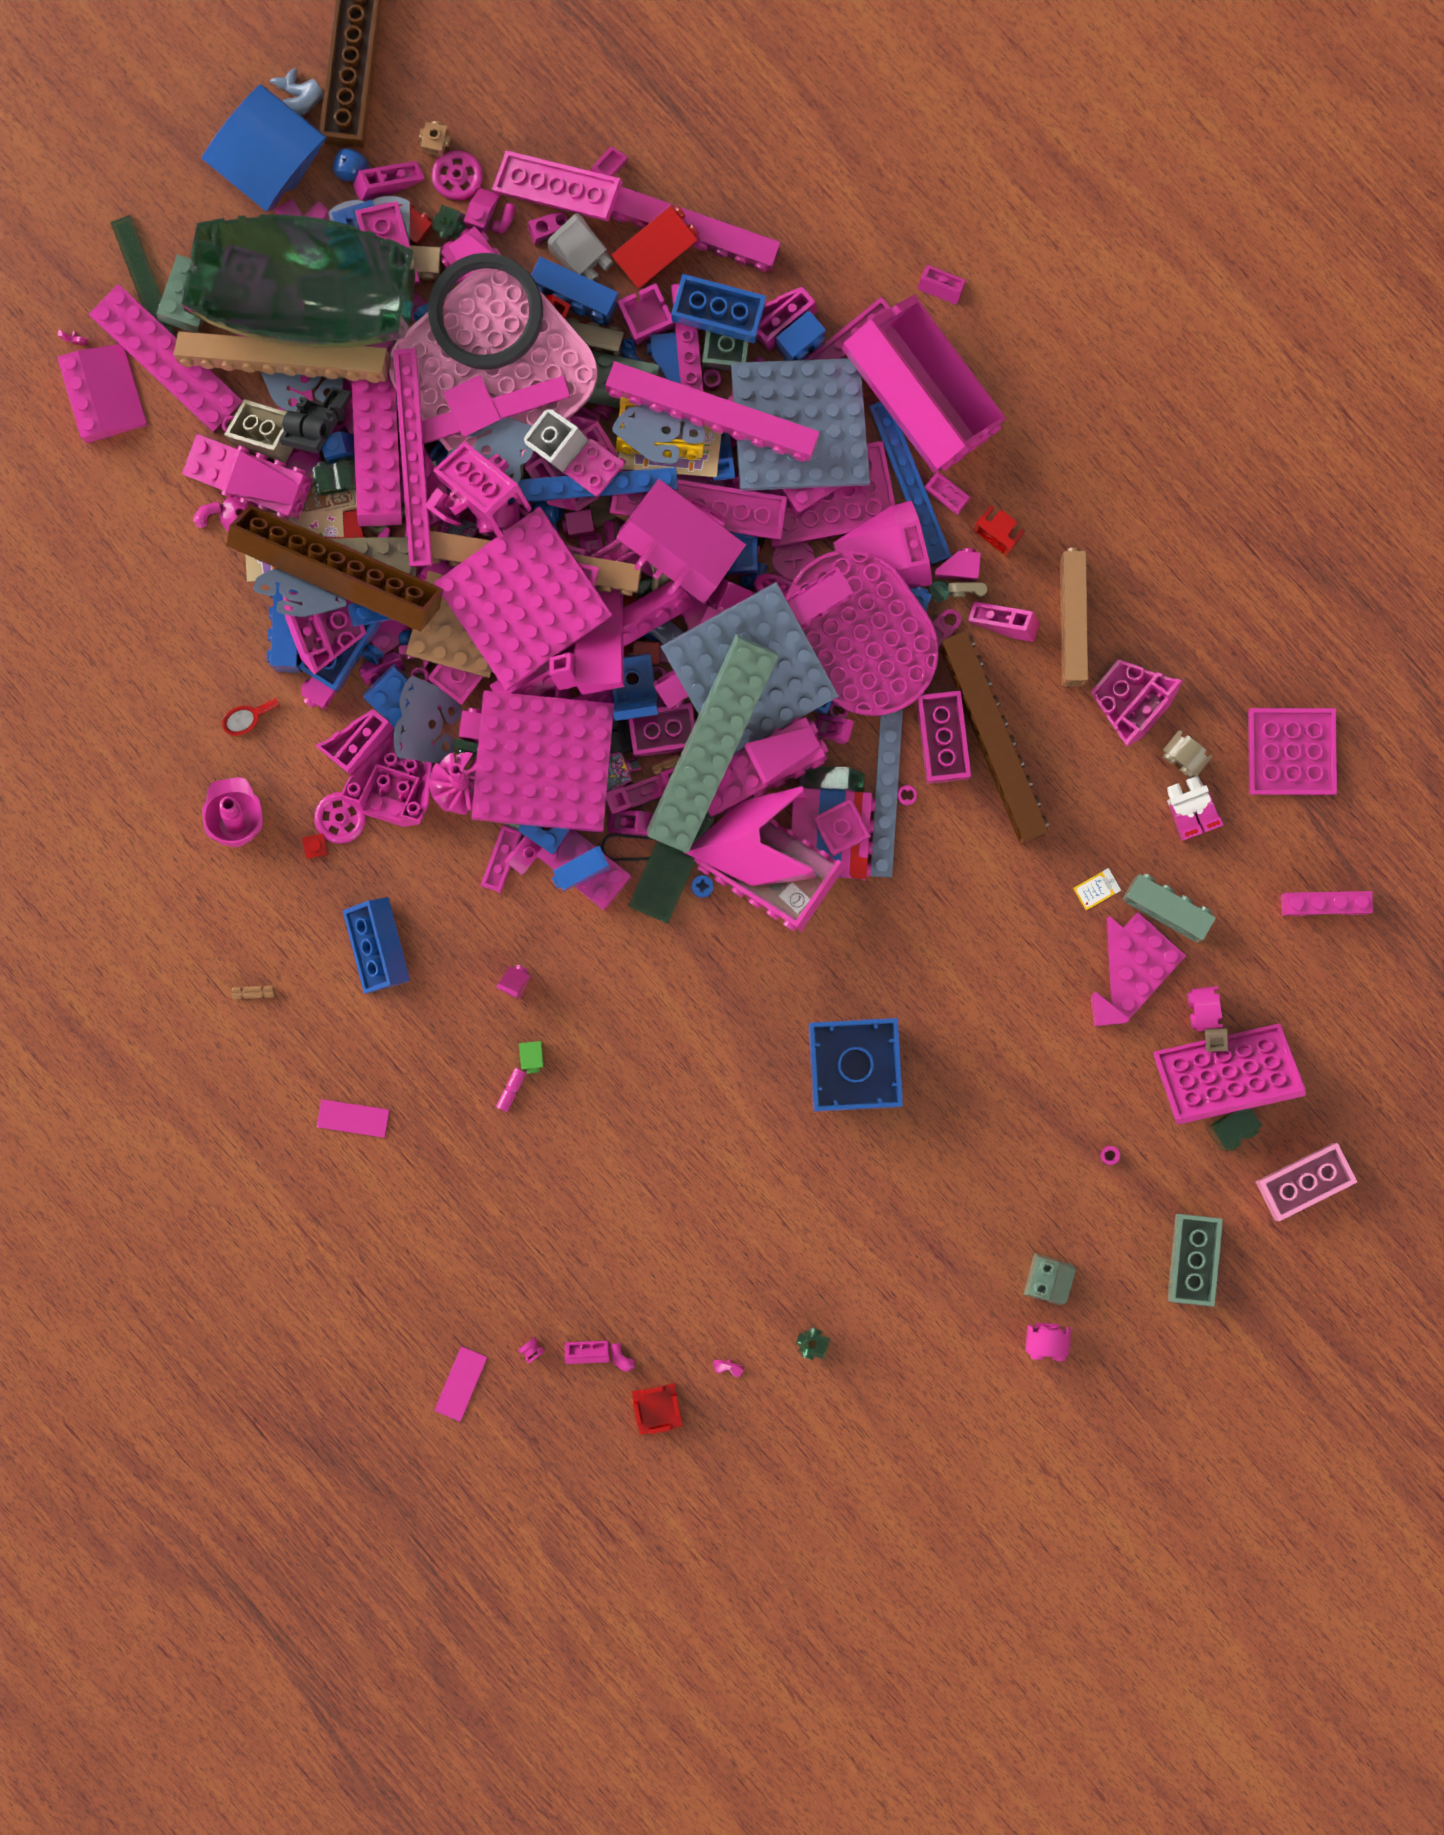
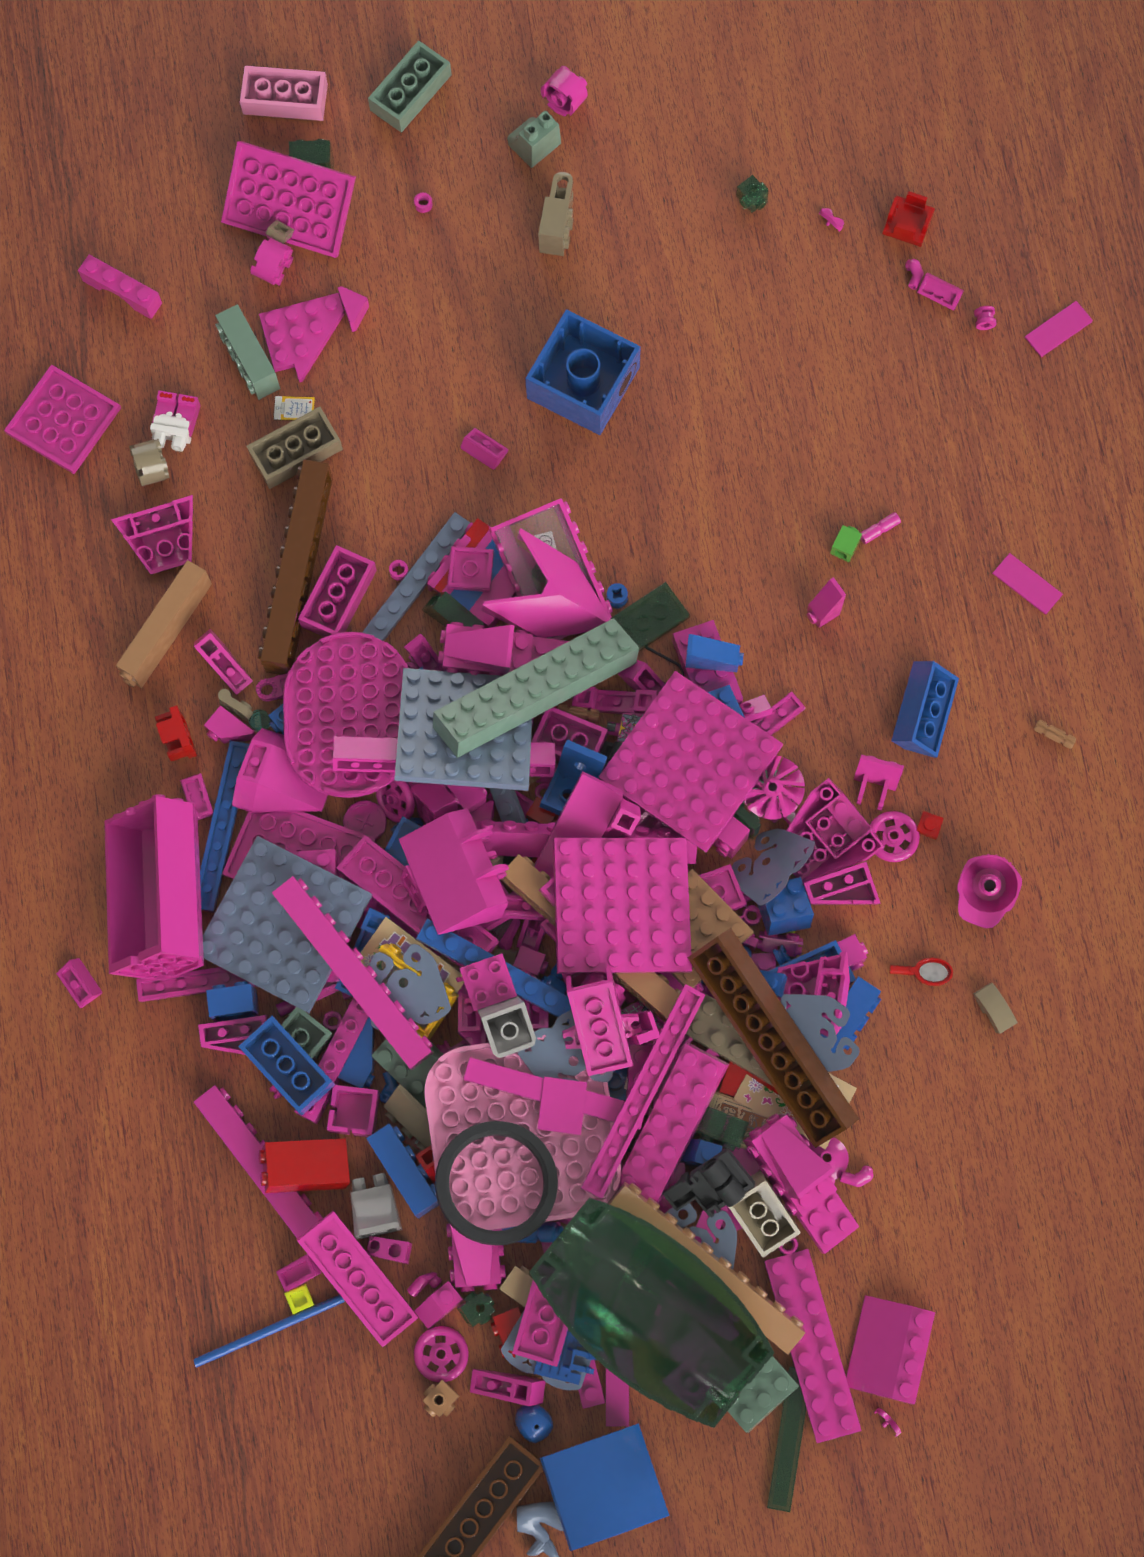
camera: 145 degrees left, 10 degrees down
(171, 719) = (995, 1007): none -> dark tan slope
(392, 859) = (877, 772): none -> dark pink plate
(595, 147) = (299, 1299): none -> neon yellow tile
(607, 107) = (269, 1330): none -> blue piece
(904, 953) = (483, 448): none -> dark pink slope
(975, 1209) = (557, 217): none -> dark tan brick
(1068, 846) = (284, 449): none -> dark tan brick

